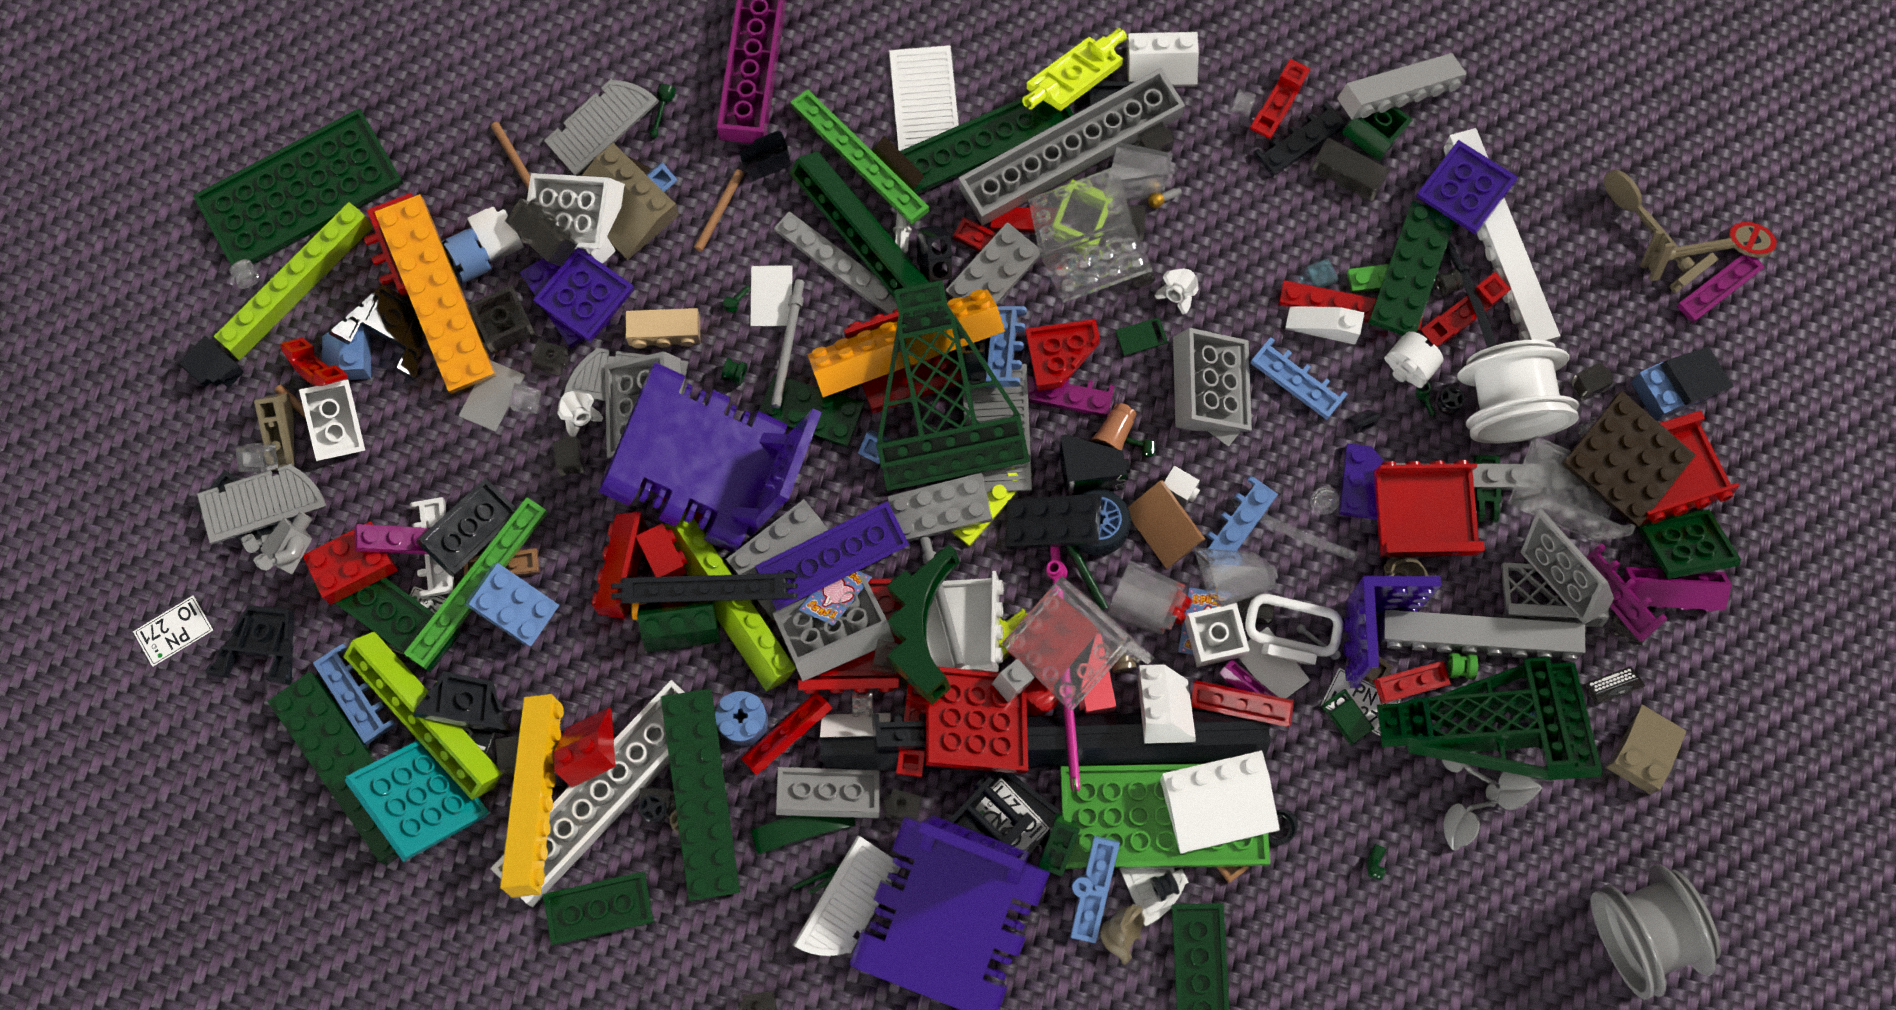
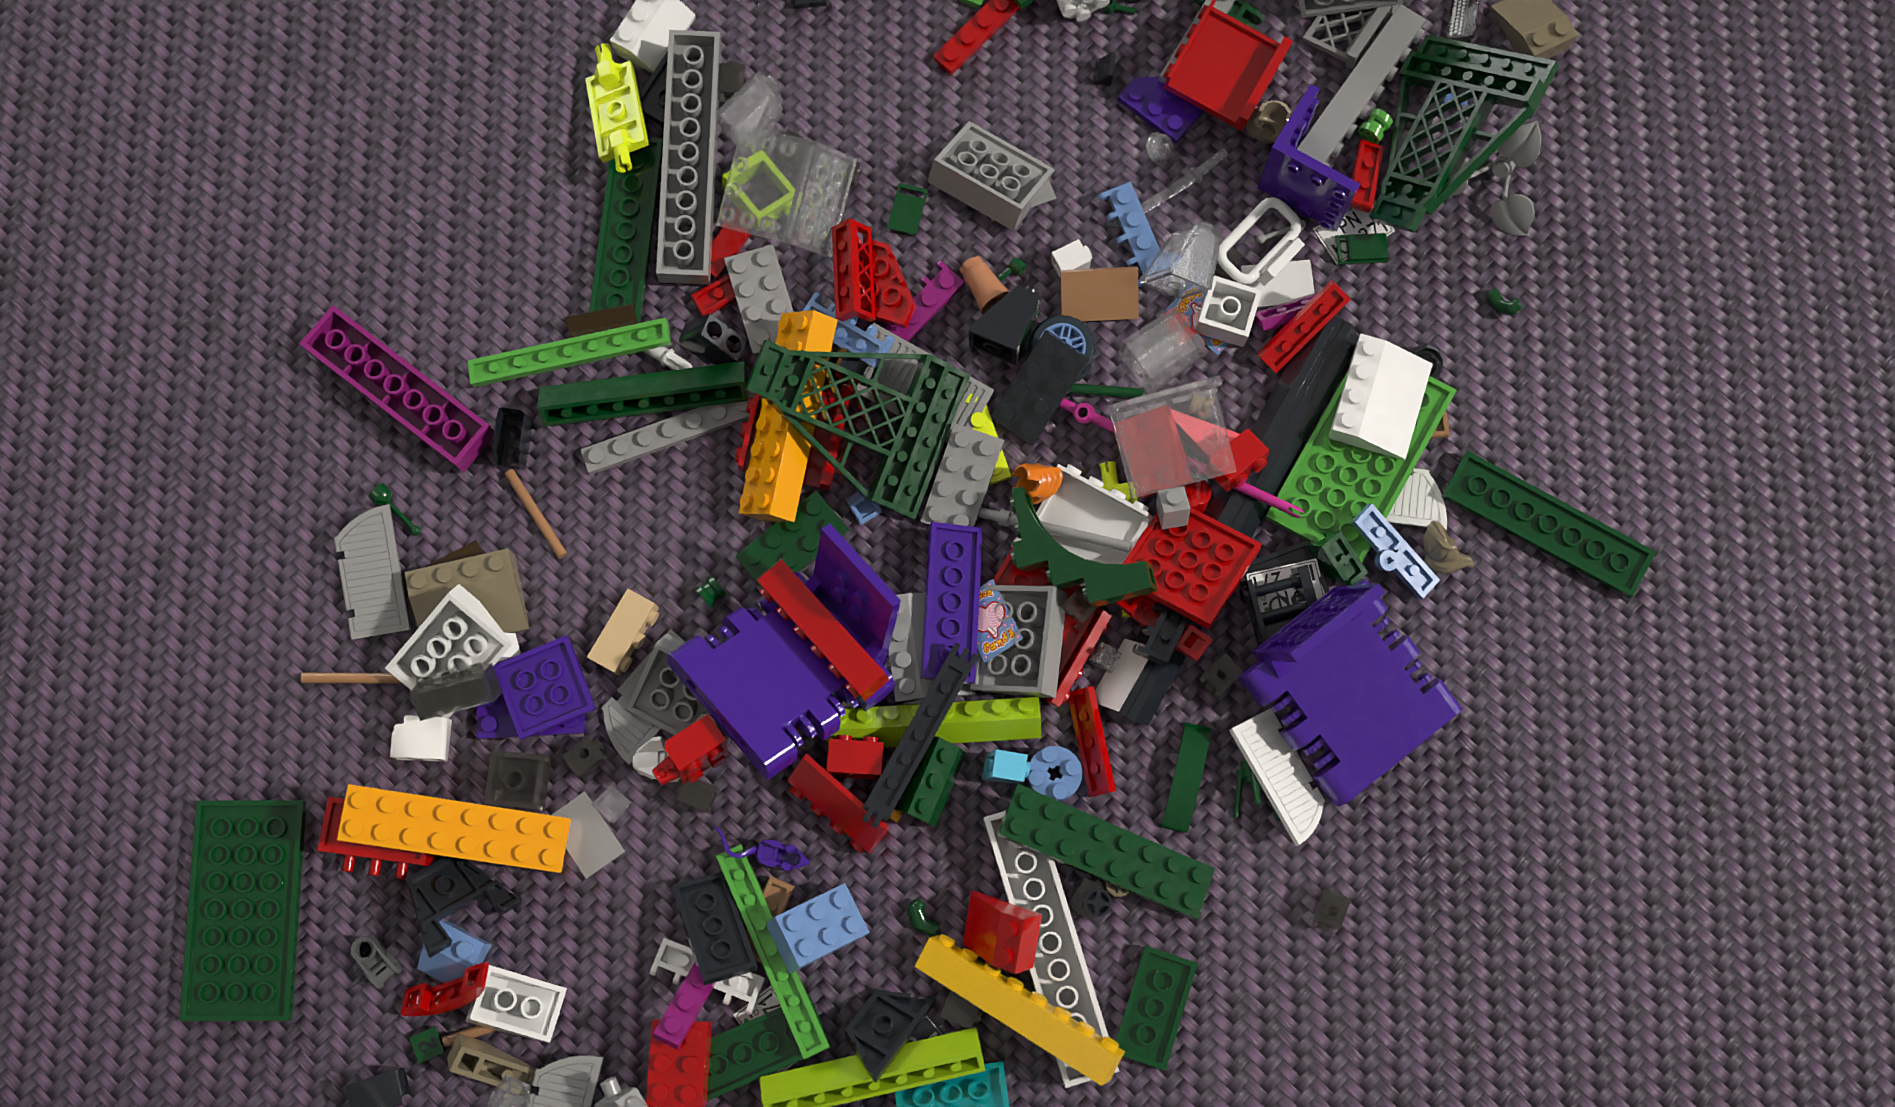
camera: 55 degrees left, 5 degrees up
(244, 273) = (300, 1011): clear wheel -> none
(269, 377) = (428, 1044): none -> dark green tile
(293, 281) = (342, 972): lime brick -> none
(309, 306) = (376, 962): none -> dark grey piece
(466, 256) = (429, 777): medium blue brick -> none
(551, 537) = (771, 854): none -> dark purple animal
(564, 682) = (918, 919): none -> dark green arm
(592, 428) = (692, 753): none -> red hinge
(662, 176) = (465, 547): medium blue slope -> none
(723, 675) = (1005, 767): none -> medium azure slope
(732, 304) = (639, 555): dark green hand -> none
(744, 466) = (823, 630): none -> red brick
(770, 295) = (653, 515): white sticker -> none
(795, 304) = (678, 496): light grey bar -> none
(827, 792) = (1171, 735): light grey plate -> none
(923, 93) = (542, 260): white window -> none
(973, 565) = (1039, 480): none -> orange hair
(1058, 314) = (848, 269): none -> red fence
(1092, 714) = (1248, 456): none -> red brick
(1156, 200) = (785, 116): piece -> none
(1164, 885) = (1424, 490): black wheel -> none
(1165, 705) = (1266, 394): white slope -> none
(1179, 288) = (885, 147): white brick -> none
(1297, 380) = (1034, 102): medium blue hinge -> none
(1322, 273) = (946, 21): clear light blue tile -> none
(1326, 322) = (996, 44): white slope -> none
(1656, 930) = (1701, 111): light grey wheel -> none

